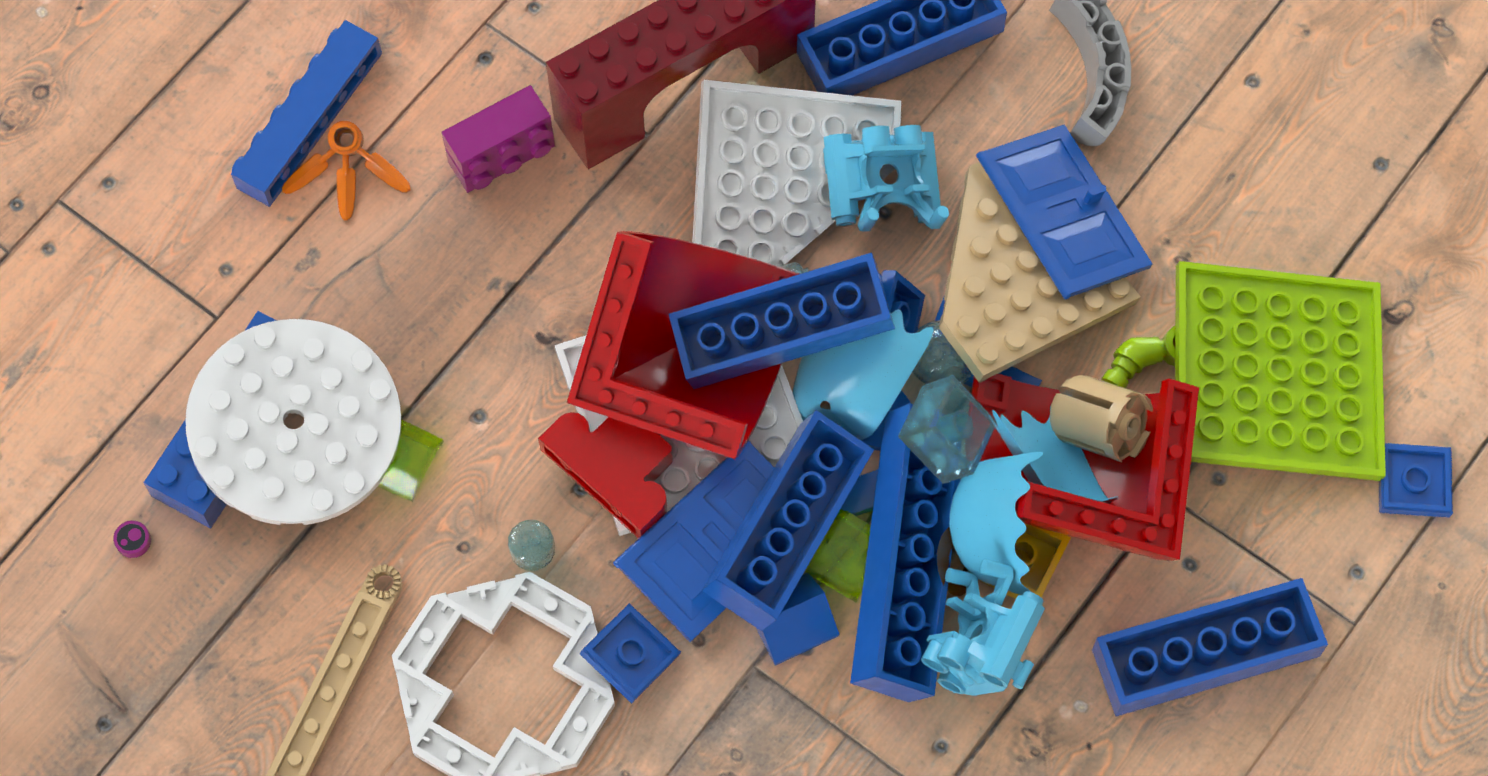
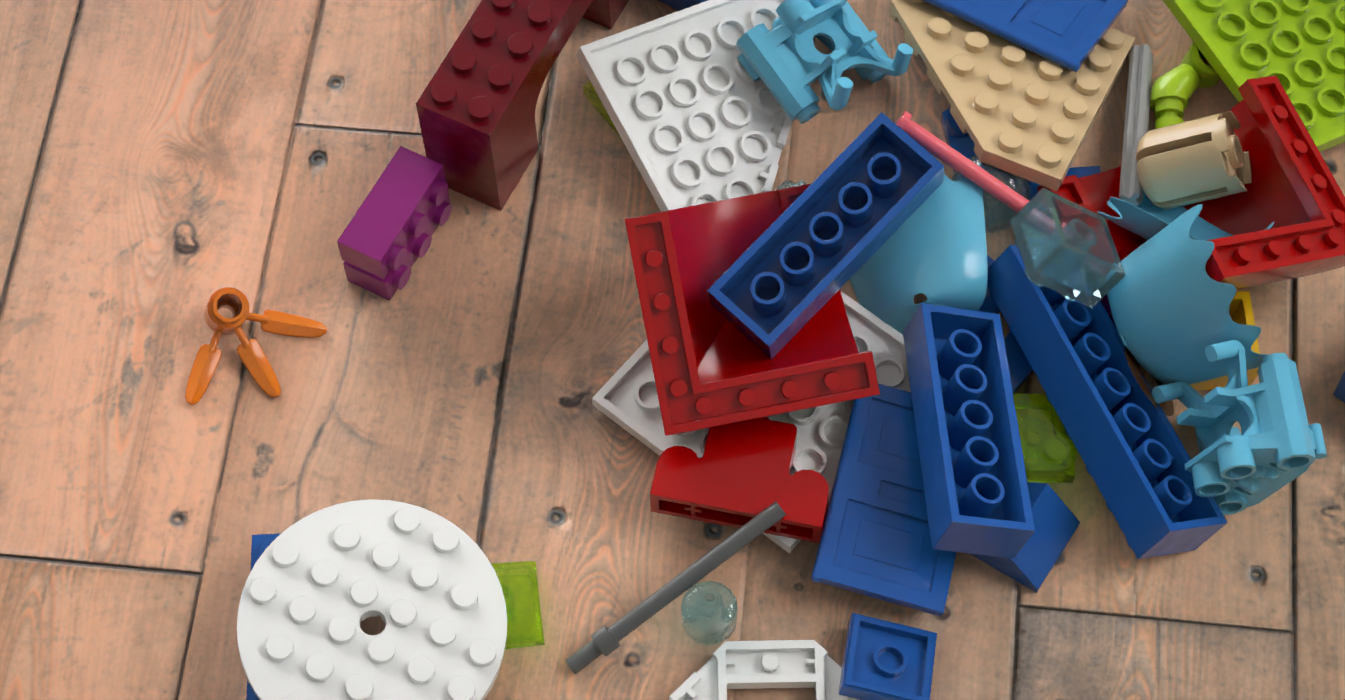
camera: 30 degrees left, 5 degrees down
(306, 112) = (163, 311): blue brick -> none
(453, 522) = (607, 638): none -> dark grey bar
(916, 319) = (961, 163): none -> coral bar
(1095, 356) = (1135, 120): none -> light grey axle

